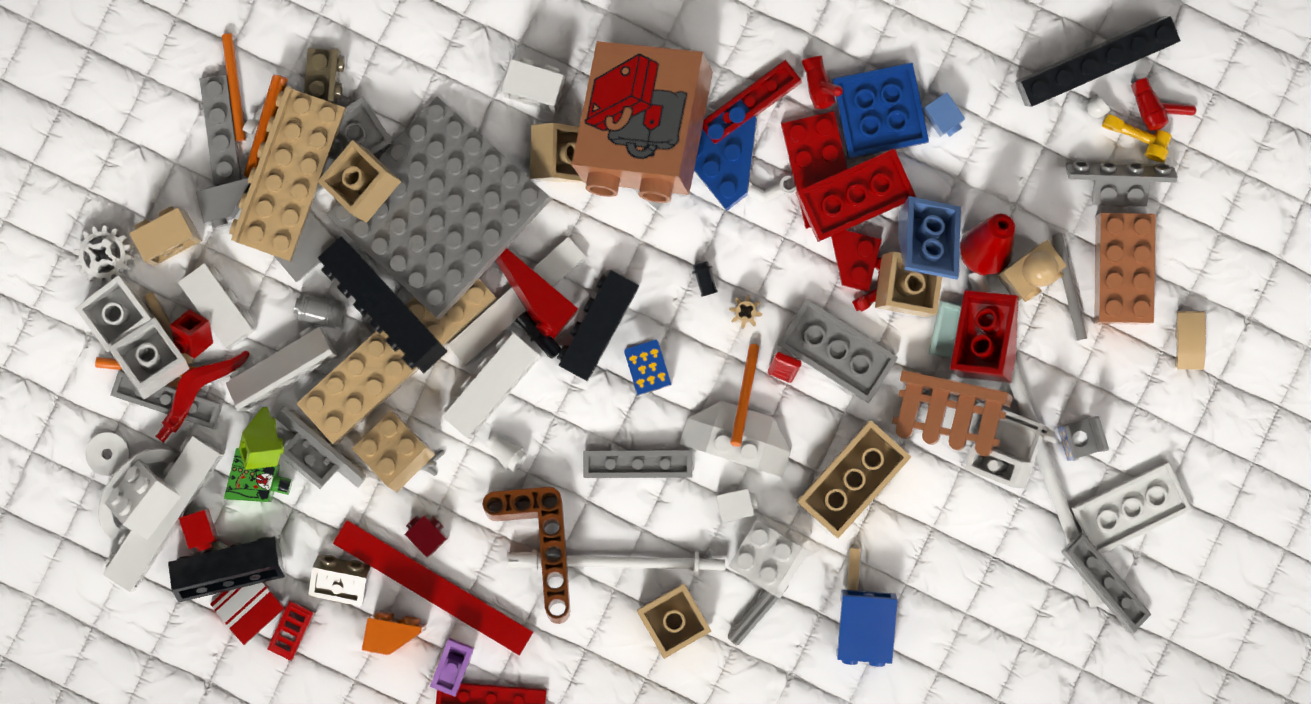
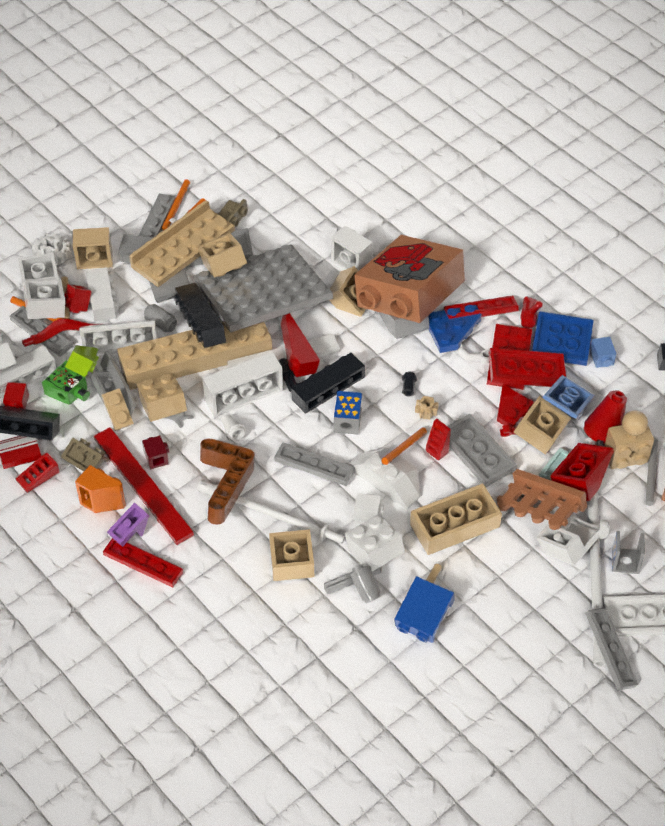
camera: 20 degrees right, 35 degrees down
(343, 493) = (117, 409): none -> tan plate
(780, 620) = (365, 583): none -> light grey head

